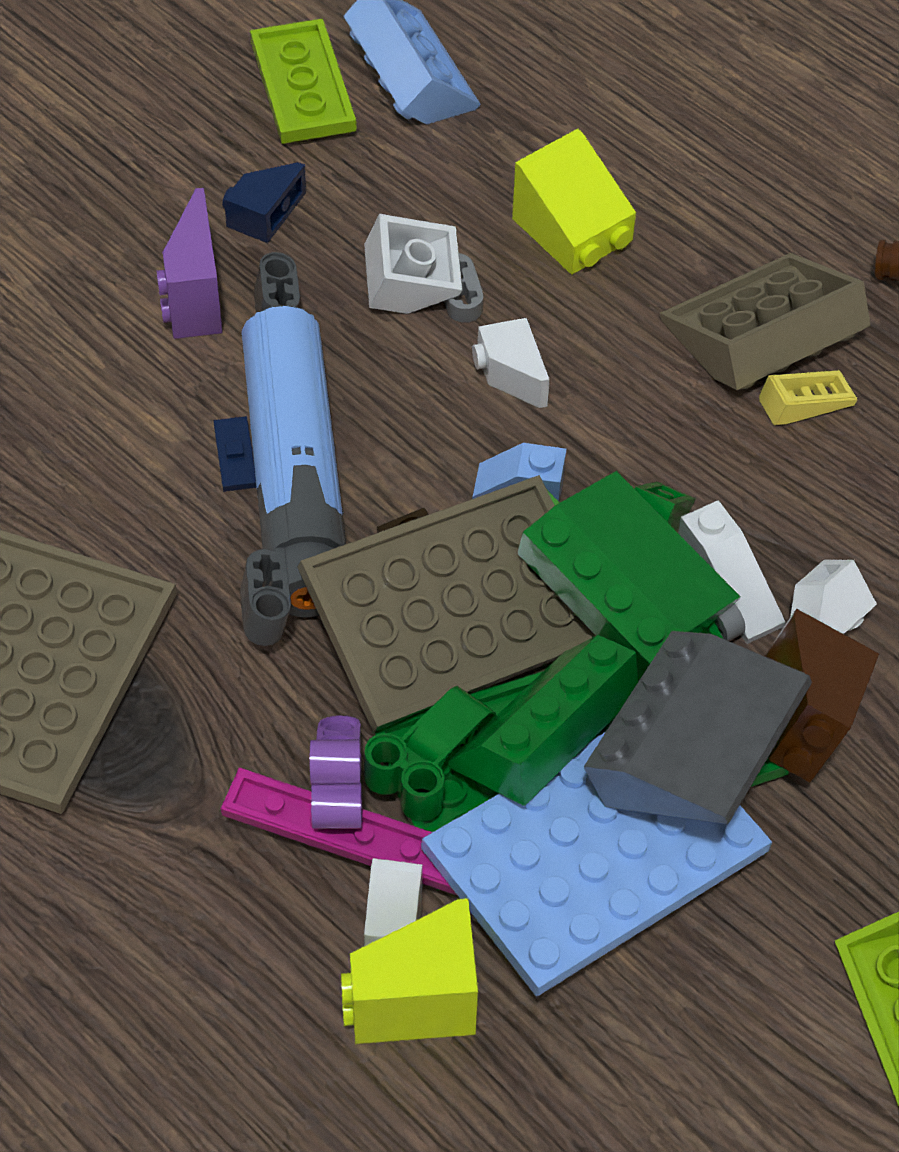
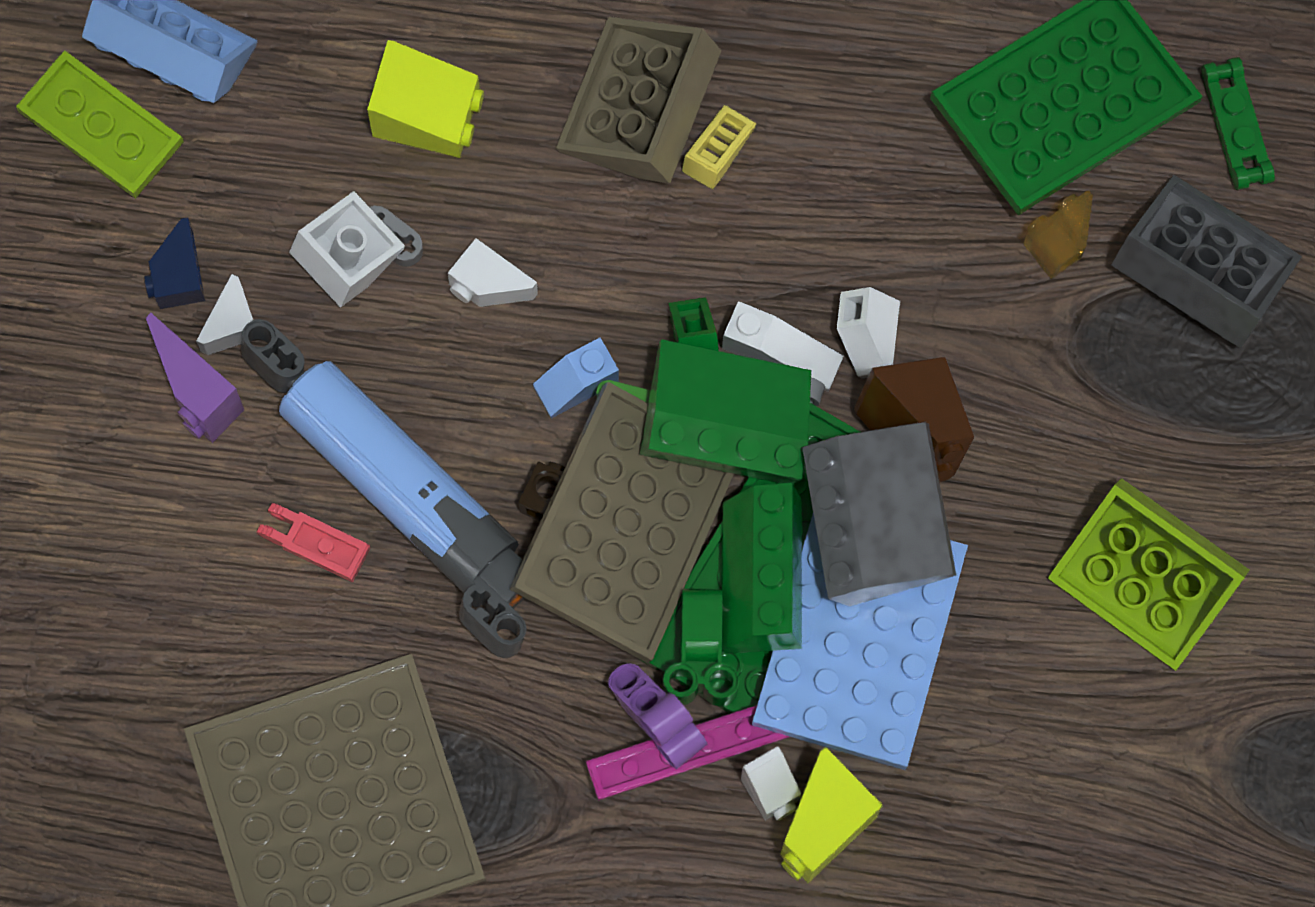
camera: 40 degrees left, 20 degrees up
(182, 456) = (317, 542): none -> coral hinge
(235, 454) = (349, 508): dark blue piece -> none
(246, 255) = (226, 320): none -> white slope

